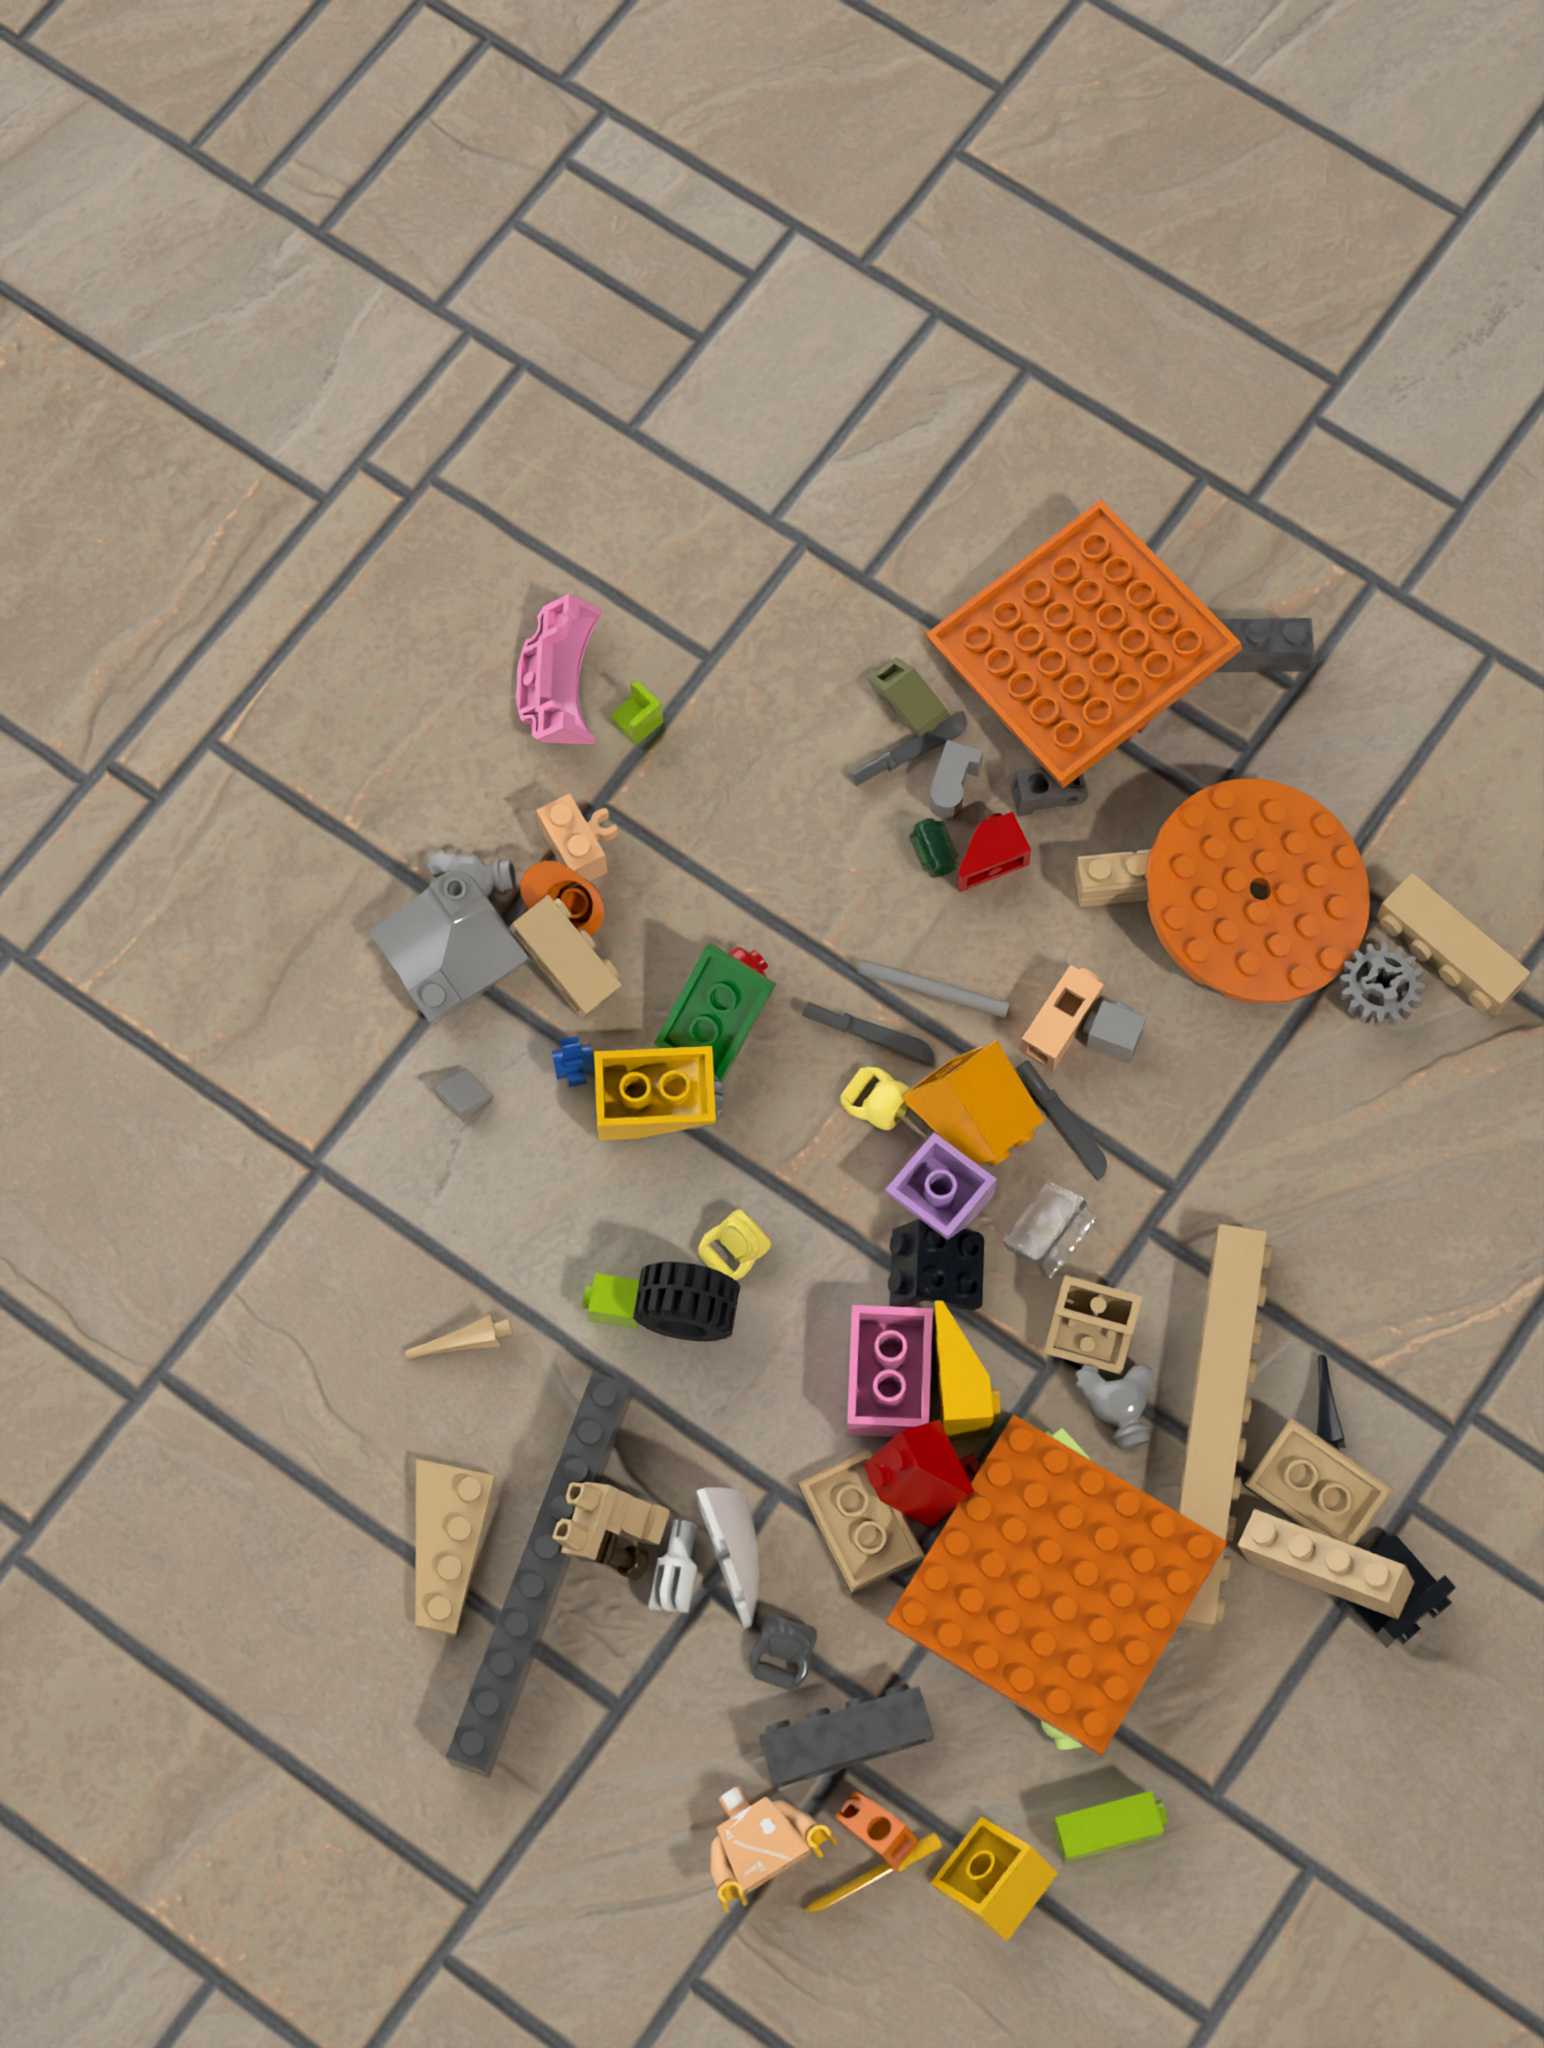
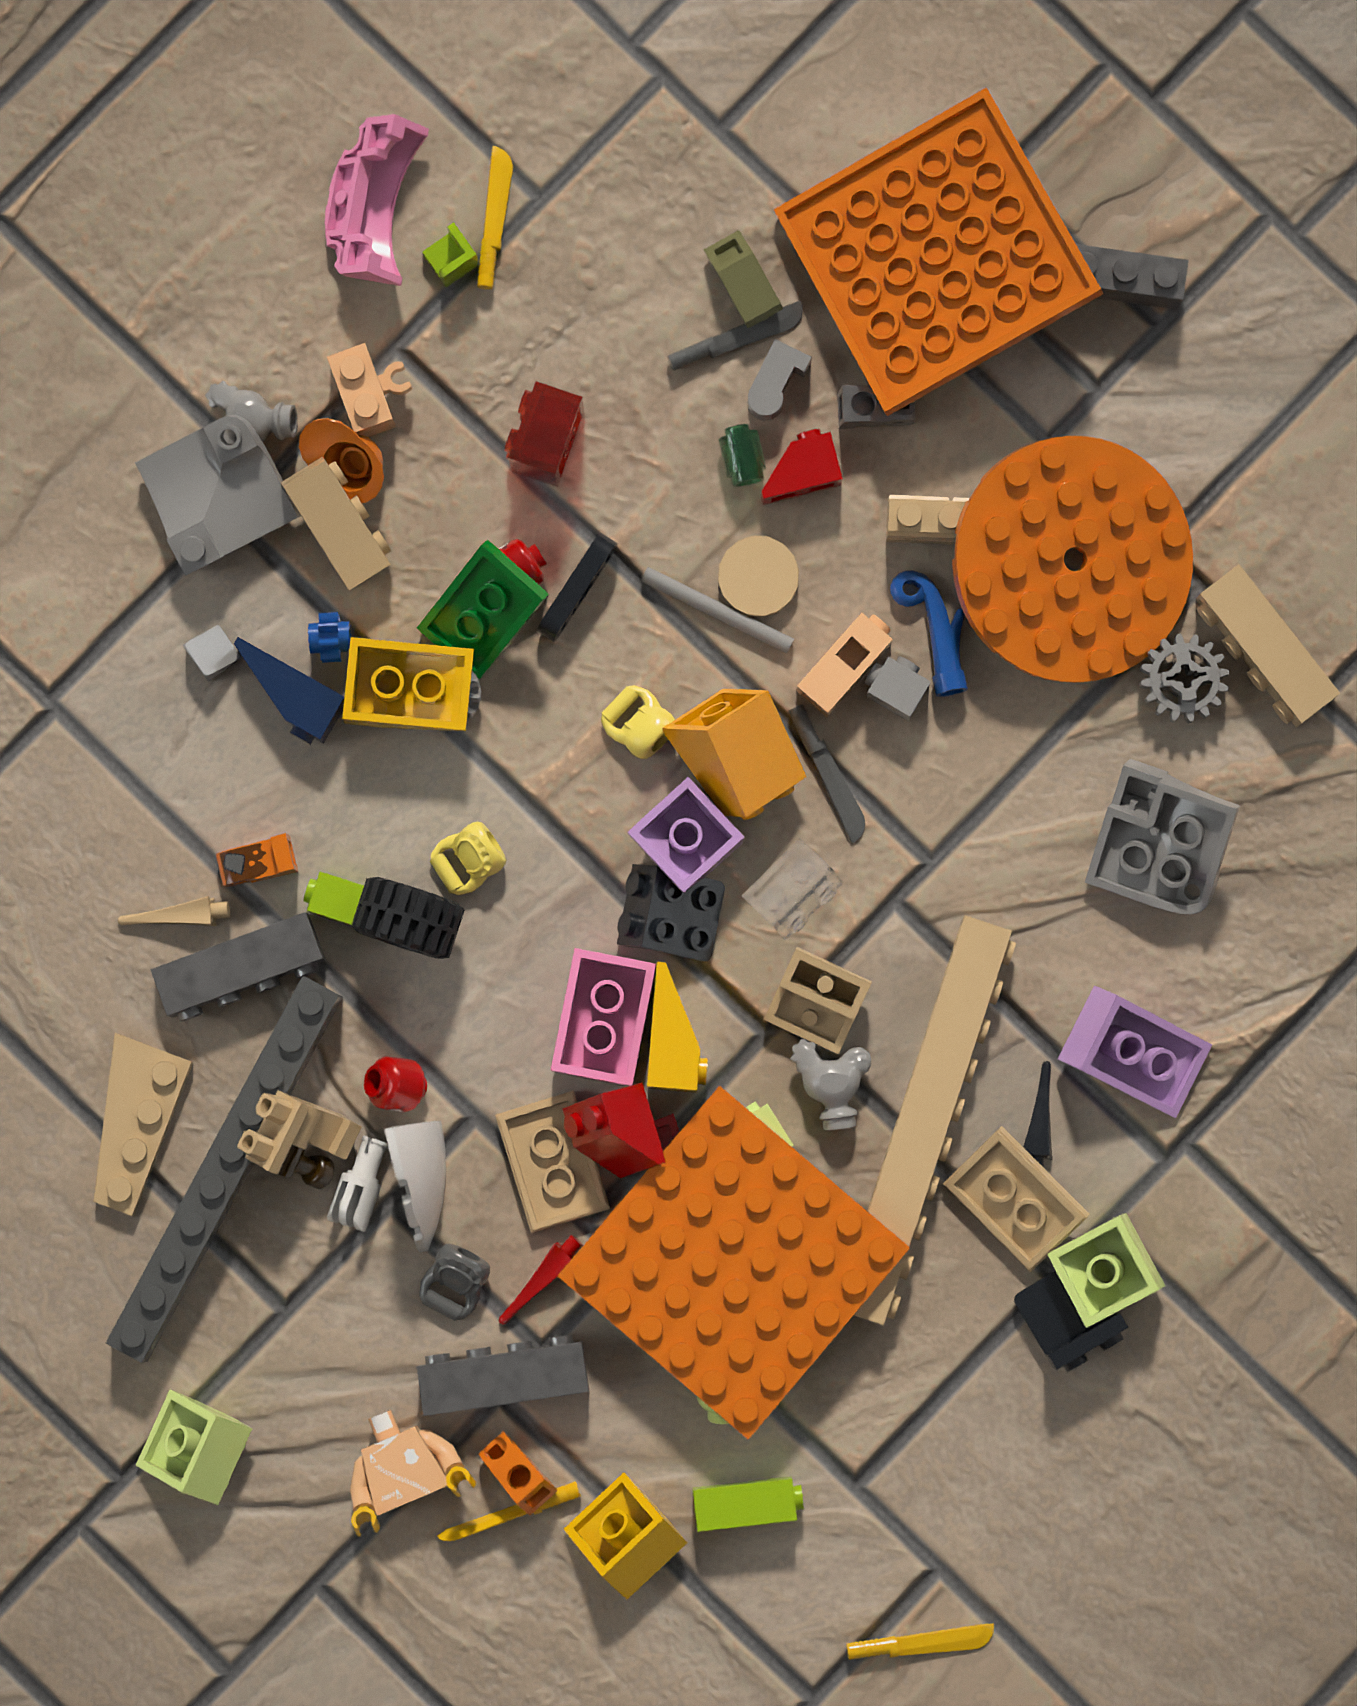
camera: 10 degrees right, 15 degrees up
(527, 1377) = (238, 965): none -> flat silver brick
(532, 1277) = (257, 861): none -> leg
(547, 1853) = (193, 1447): none -> yellowish green slope
(552, 1121) = (299, 698): none -> dark blue slope
(671, 673) = (496, 203): none -> yellow piece
(696, 1464) = (395, 1084): none -> red head
(748, 849) = (545, 433): none -> clear red brick
(799, 985) = (577, 587): none -> black beam
(870, 1632) = (548, 1271): none -> red piece
(885, 1037) = (658, 655): dark grey piece -> none
(966, 953) = (758, 576): none -> tan tile
(1151, 983) = (944, 636): none -> blue plant
(1321, 1941) = (930, 1642): none -> yellow piece
(1326, 1563) = (1004, 1283): tan brick -> none
(1392, 1129) = (1161, 840): none -> light grey slope
(1404, 1330) = (1135, 1051): none -> lavender slope
(1422, 1537) = (1106, 1270): none -> yellowish green slope

